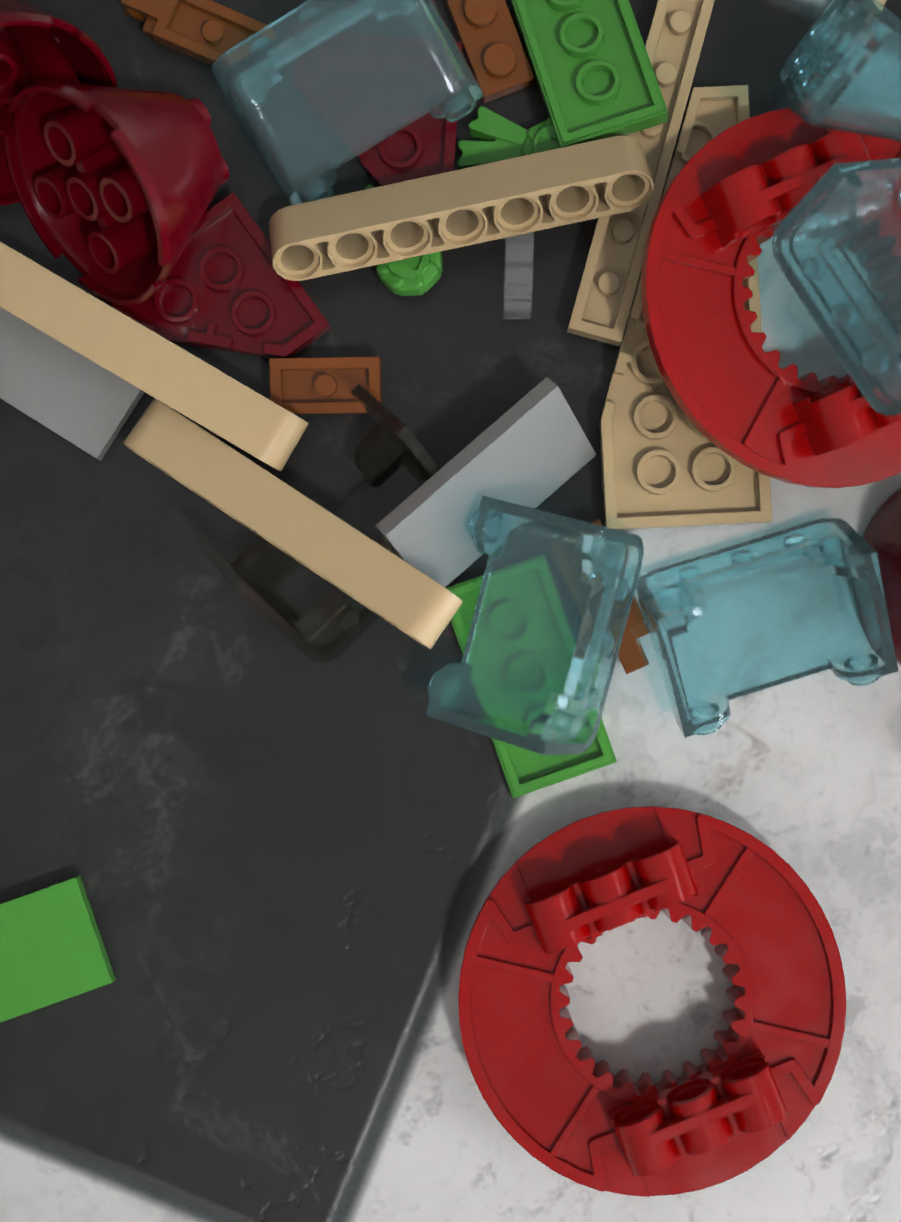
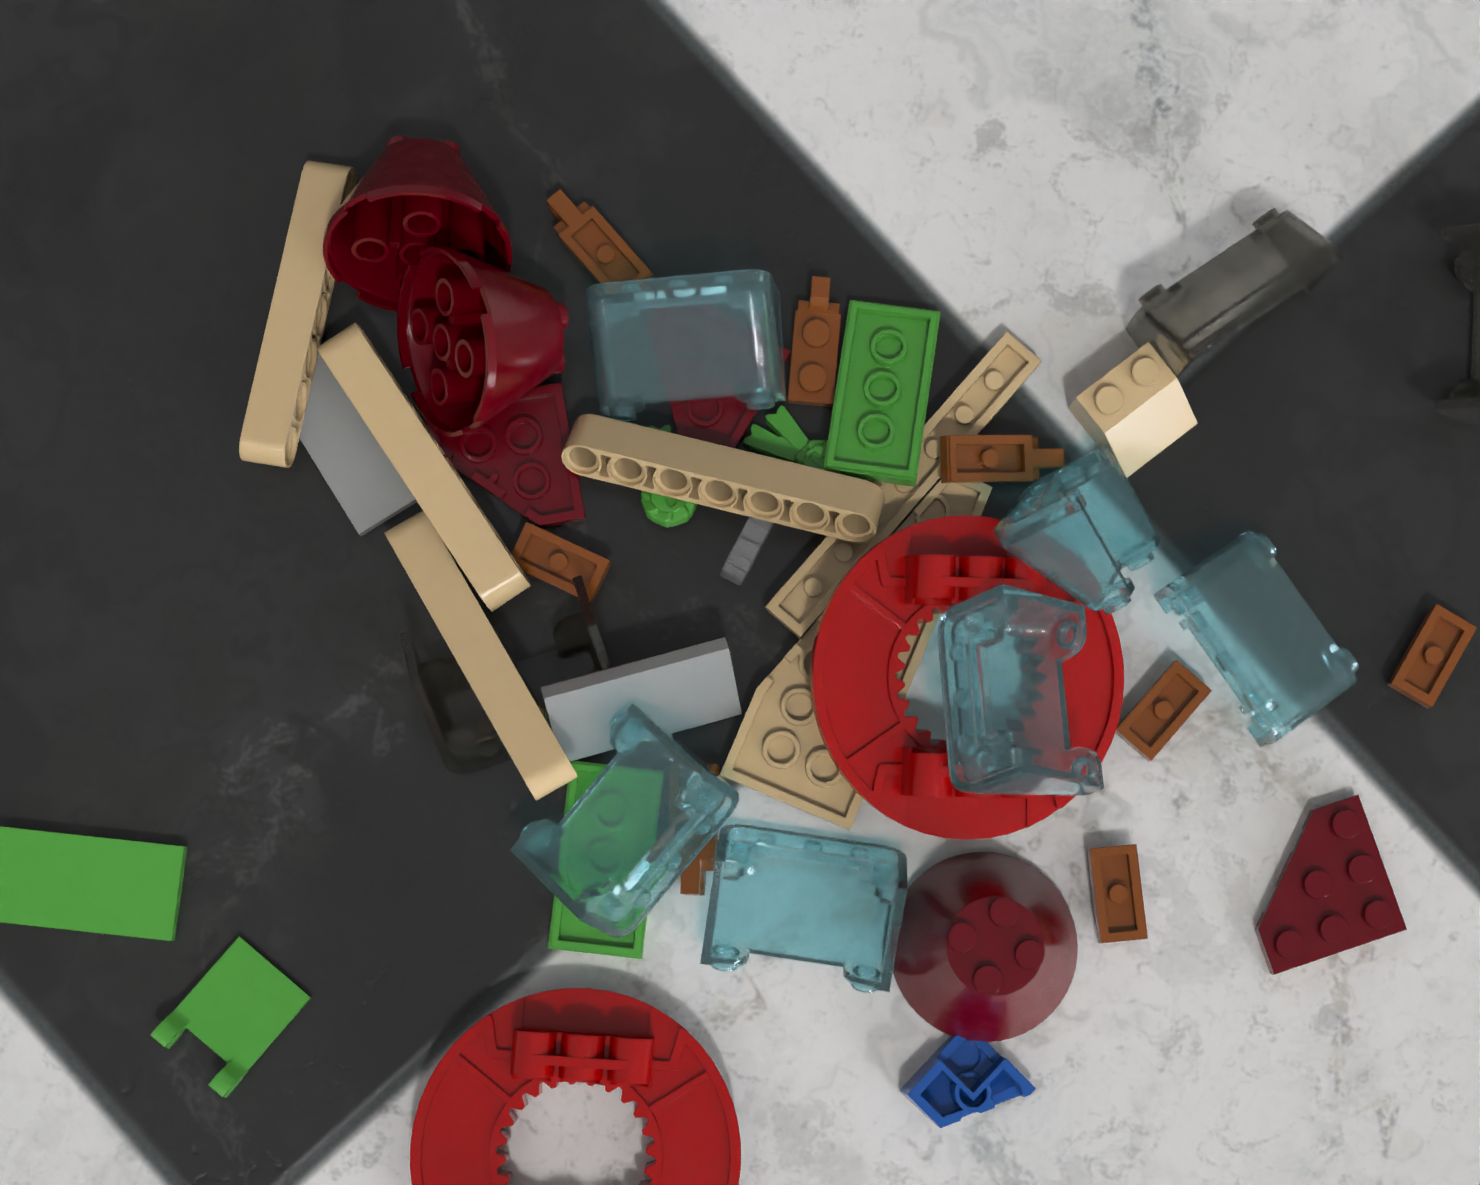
camera: 25 degrees right, 5 degrees down
(217, 1023) = (235, 1012): none -> bright green flag
(737, 51) = (995, 458): none -> dark orange hinge

